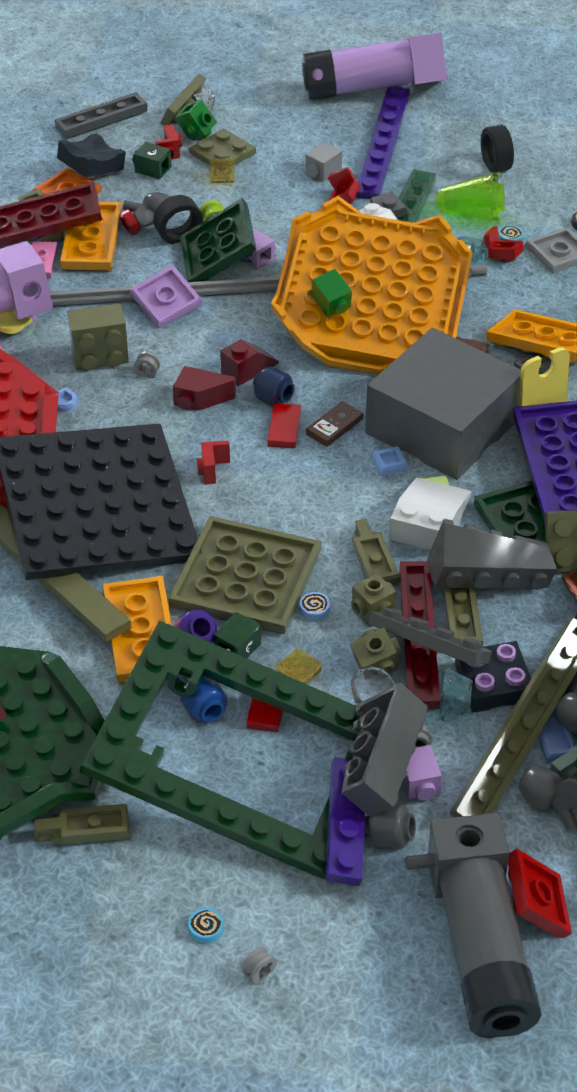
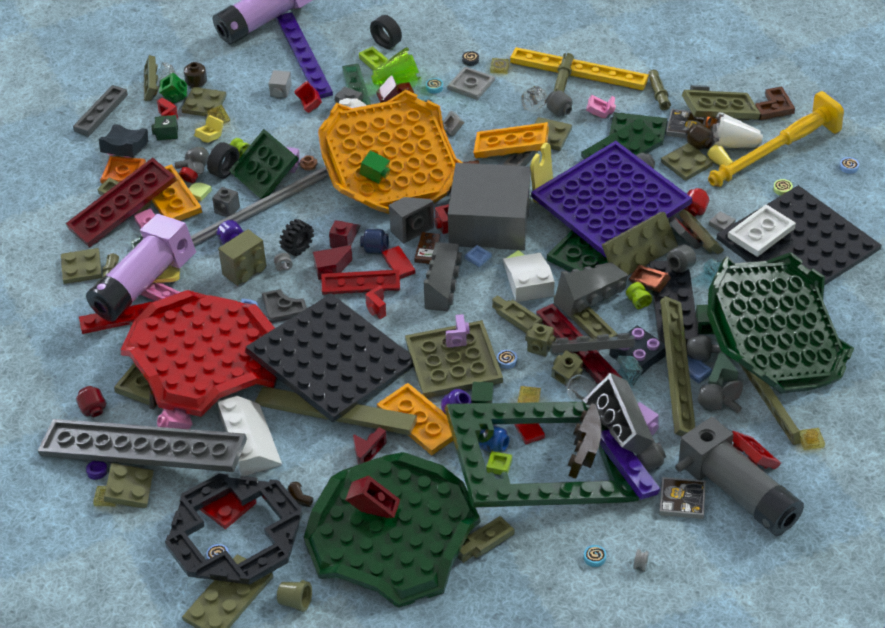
camera: 30 degrees left, 0 degrees up
(46, 635) = (368, 449): none -> dark red slope
(101, 412) = (281, 307): none -> dark grey tile
(115, 296) = (228, 230): none -> dark purple head
(129, 245) = (200, 190): none -> yellowish green tile
(140, 265) = (226, 202): none -> dark grey brick
(166, 296) = (257, 213): lavender tile -> none
(176, 331) = (296, 237): none -> black tyre
(187, 735) = (499, 463): none -> lime plate
(197, 185) = (211, 130): none -> light yellow bracket
(216, 427) = (360, 281): none -> red plate
(234, 115) = (195, 74): none -> dark brown head
(271, 545) = (458, 337): none -> lavender bracket
(276, 263) = (308, 162): none -> nougat plate
(304, 766) = (586, 441): none -> slope
(315, 463) = (441, 276): none -> dark grey wedge
(336, 375) = (411, 217): none -> dark grey slope
(391, 909) = (682, 498): none -> tile
(459, 171) = (372, 57): none -> lime plate
(460, 224) = (390, 89): none -> slope
(492, 287) = (452, 123): none -> light grey plate
(501, 249) = (438, 96): red bracket -> none
(555, 604) = (637, 294): none -> lime wheel

